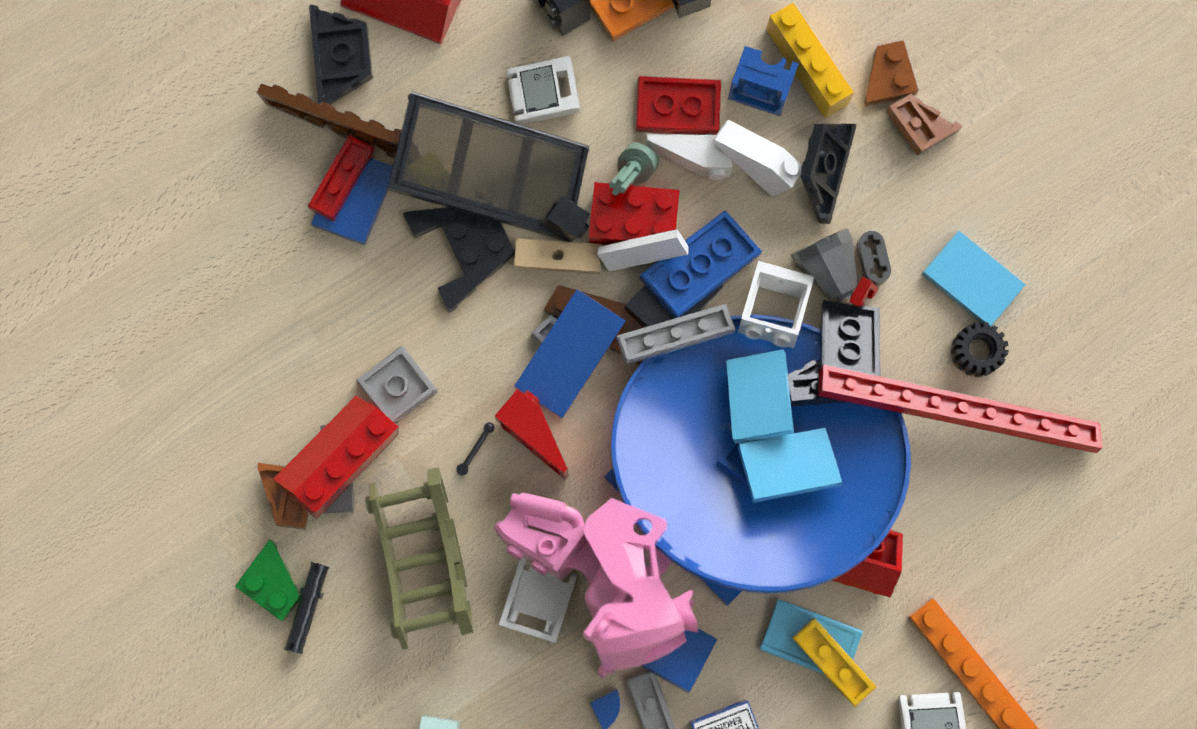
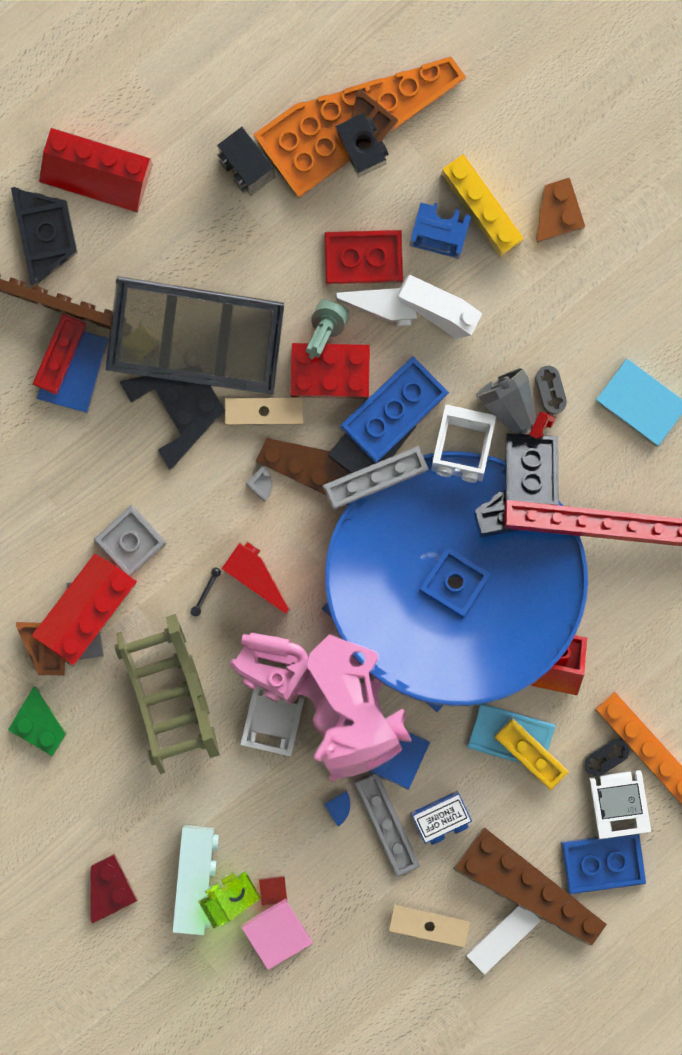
camera: 10 degrees left, 10 degrees up
(306, 608) = (72, 743): black pin -> none
(537, 92) = (232, 253): white container -> none
(566, 220) = (269, 379): black brick -> none
(570, 353) = (282, 501): blue tile -> none
(643, 250) = (340, 403): white tile -> none
(759, 397) = (453, 530): medium azure tile -> none
(789, 465) = (482, 590): medium azure tile -> none
(825, 166) = (502, 307): black wing -> none
(920, 123) = (588, 258): wing -> none
(922, 680) = (603, 751): none -> black beam
(994, 341) = (664, 463): black tyre -> none

